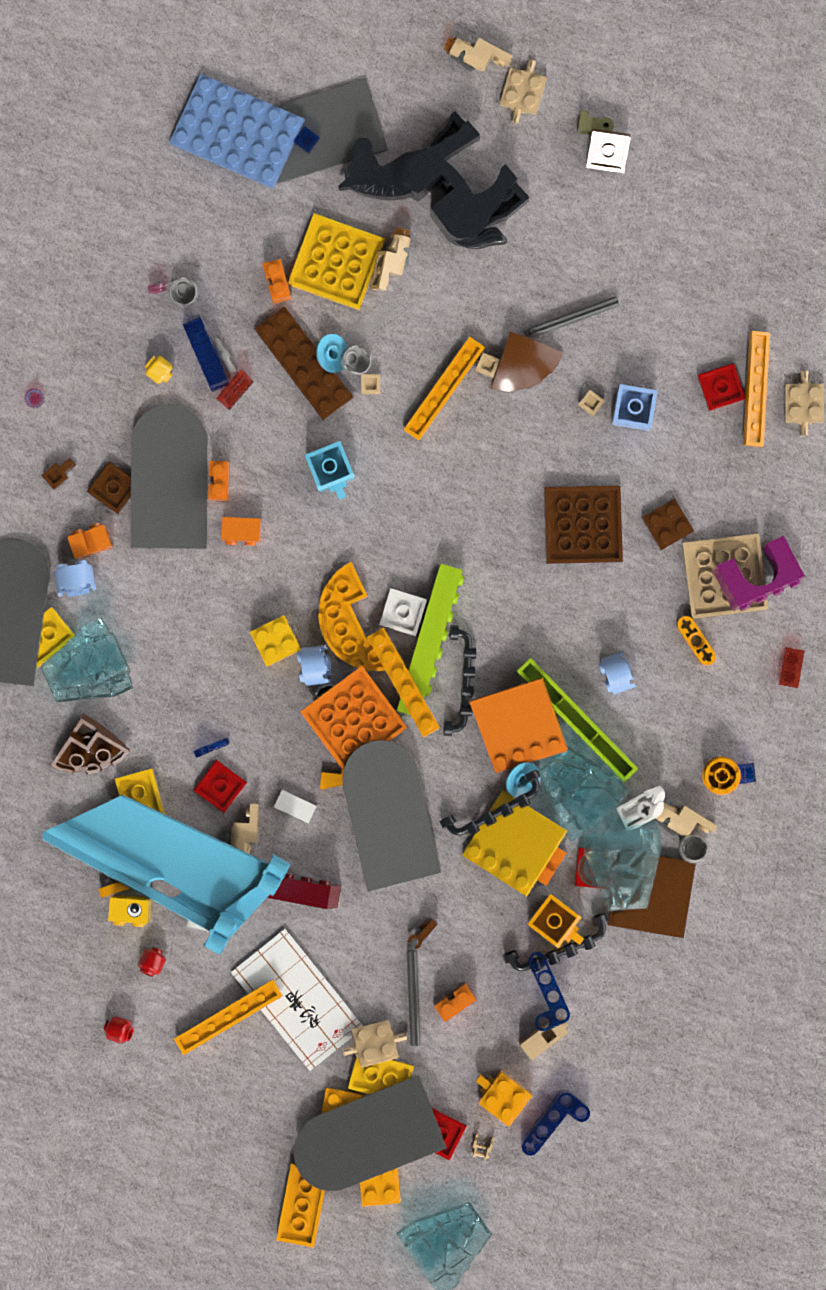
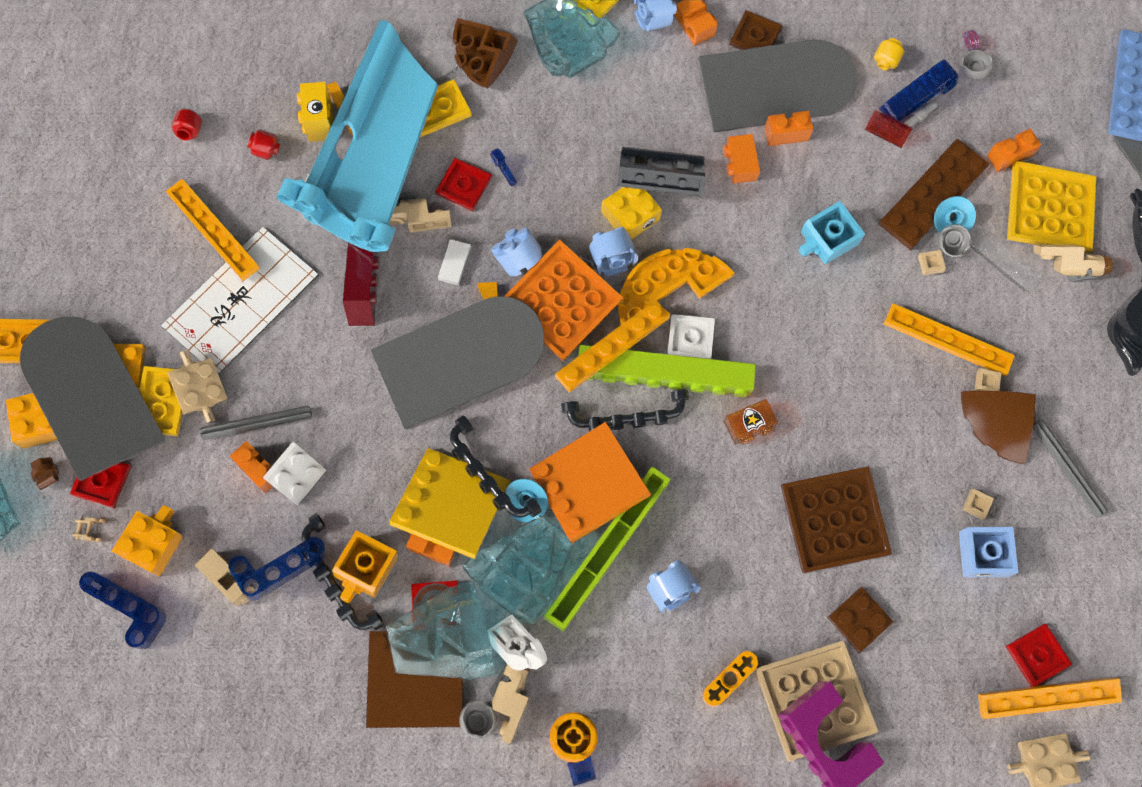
camera: 80 degrees right, 15 degrees down
(256, 611) = (661, 171): none -> black fence
(301, 749) = (517, 251): none -> light blue brick
(426, 928) = (336, 421): reddish brown plate -> none
(428, 1179) = (44, 472): none -> reddish brown piece
(468, 969) = (294, 473): none -> white plate
(488, 577) = (750, 422): none -> clear orange brick

